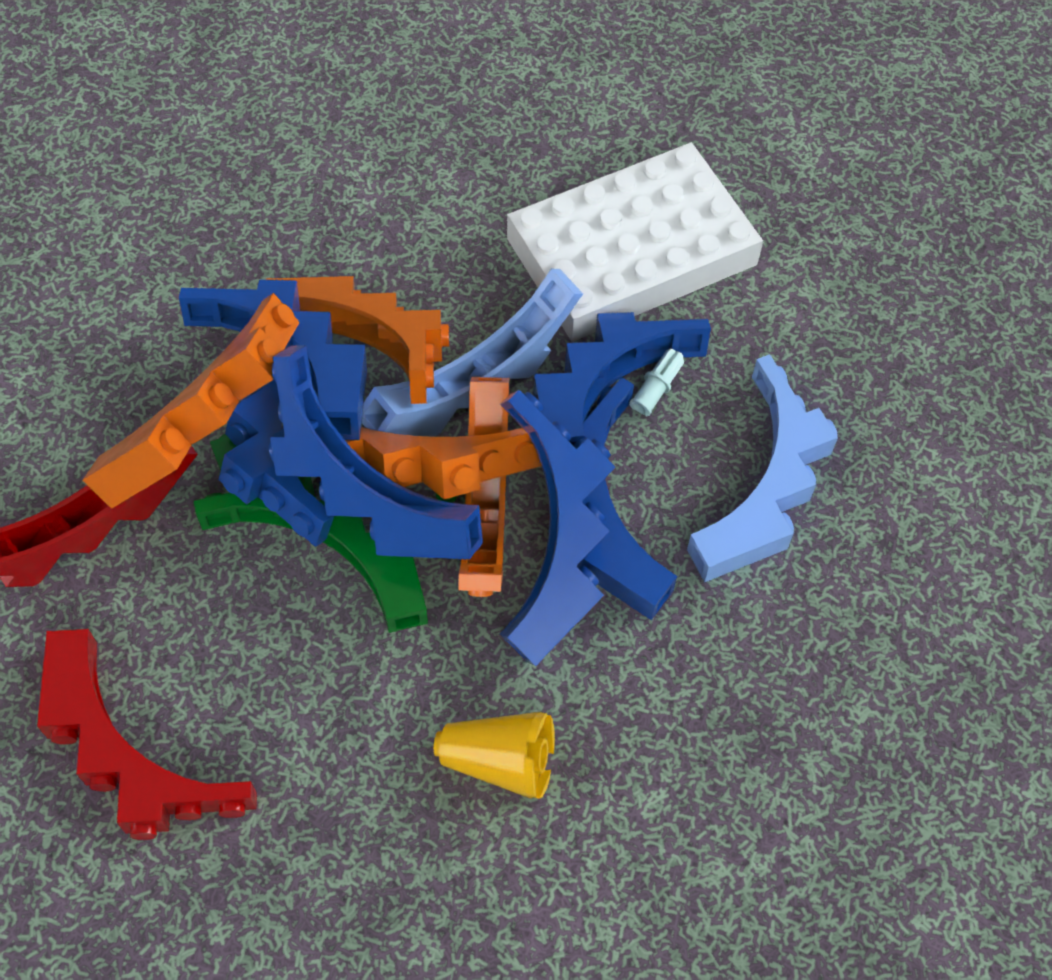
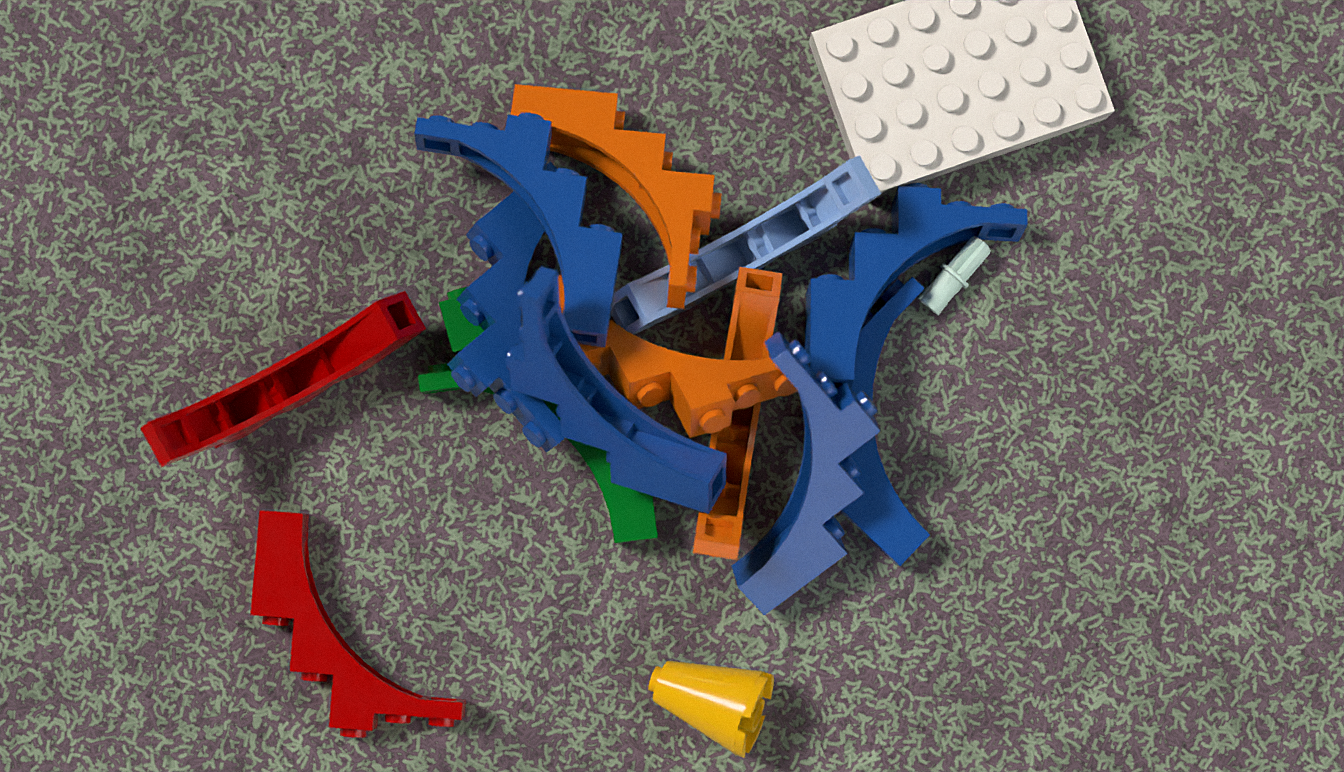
camera: 10 degrees right, 25 degrees up
(197, 411) = (440, 315): orange arch -> none
(758, 525) = (1098, 372): light blue arch -> none

